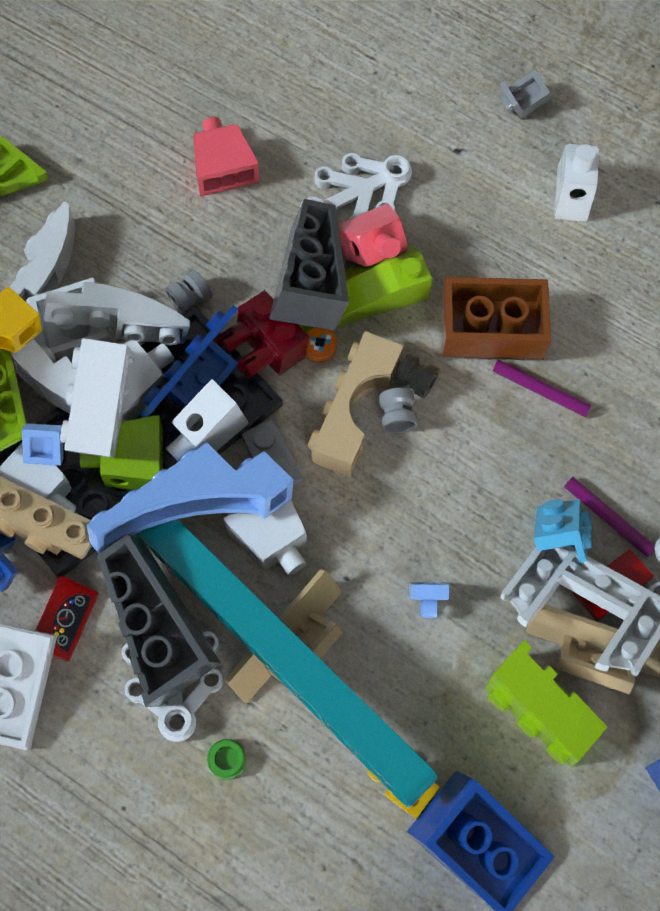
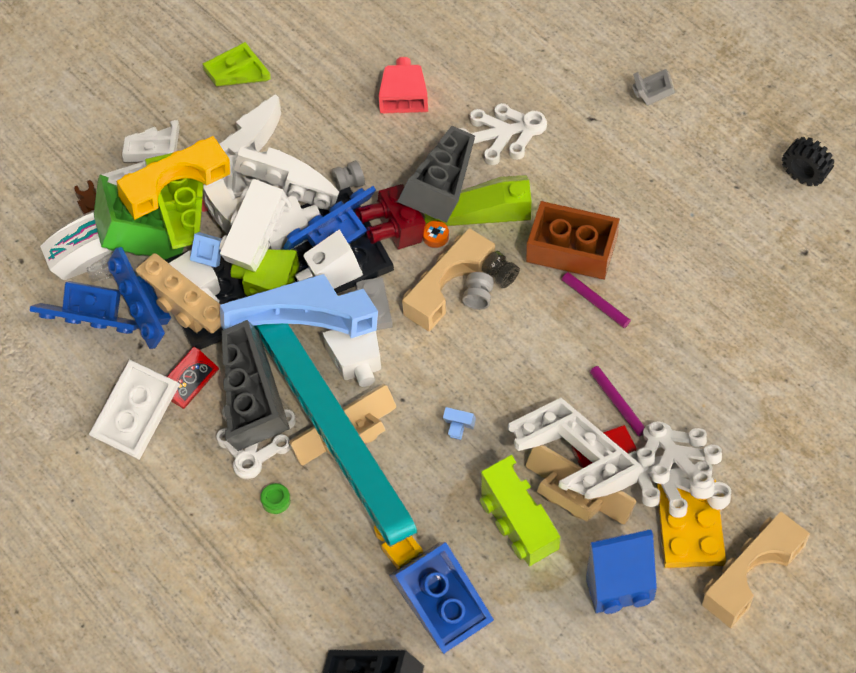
camera: 20 degrees right, 10 degrees down
(375, 234) = (497, 163): coral torso -> none
(563, 525) = (573, 390): medium azure bracket -> none
(576, 171) = (675, 147): white torso -> none

